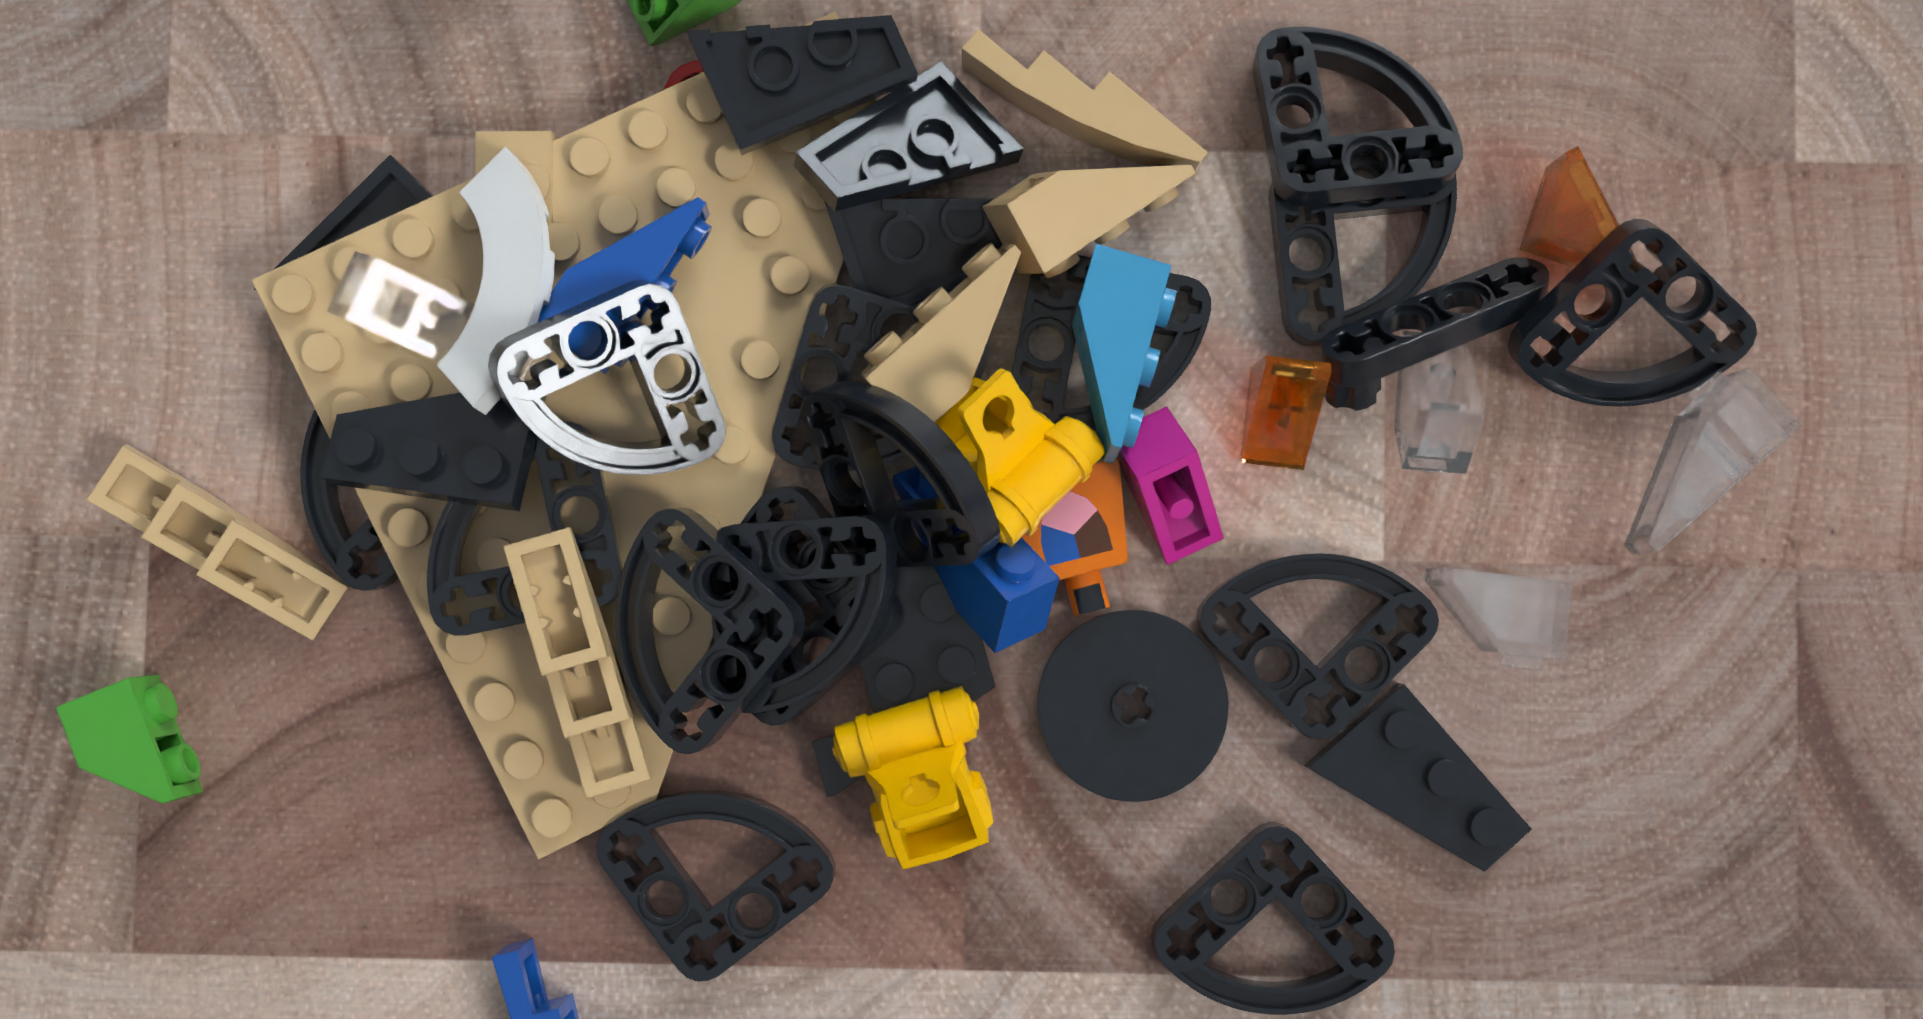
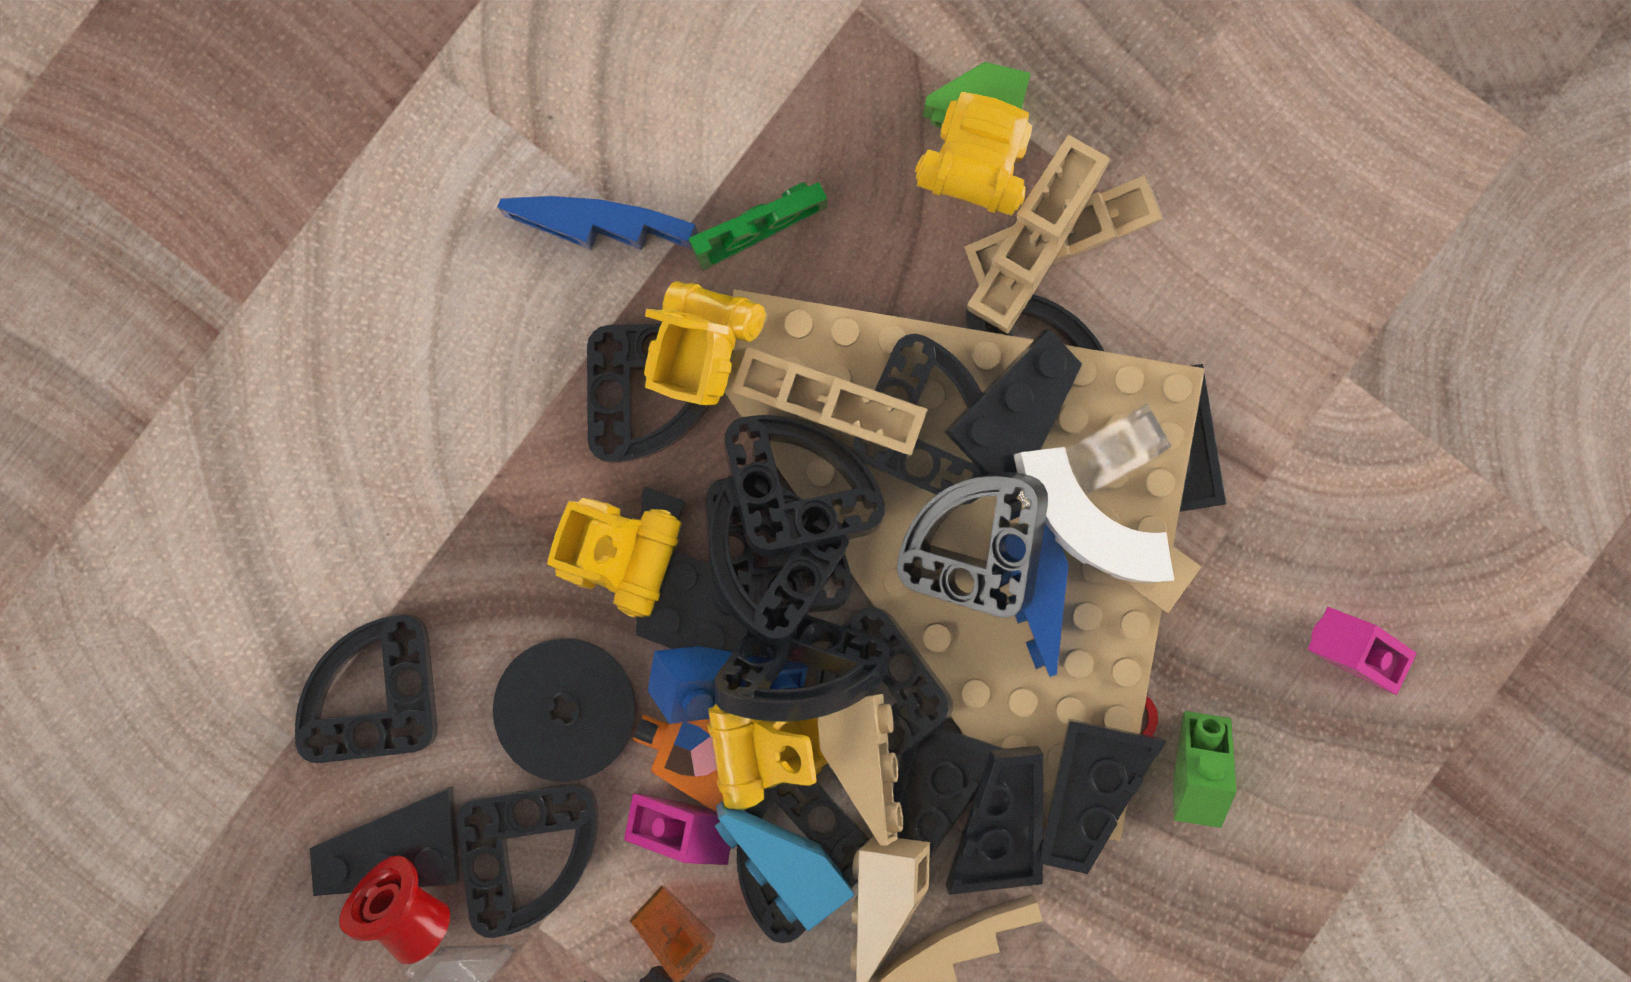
camera: 125 degrees right, 0 degrees up
(181, 696) = (979, 154): none -> yellow piece
(228, 568) = (1038, 233): none -> tan slope
(452, 890) = (757, 224): none -> green wing
(619, 857) = (697, 340): none -> yellow piece
(1483, 726) = (395, 912): none -> red piece

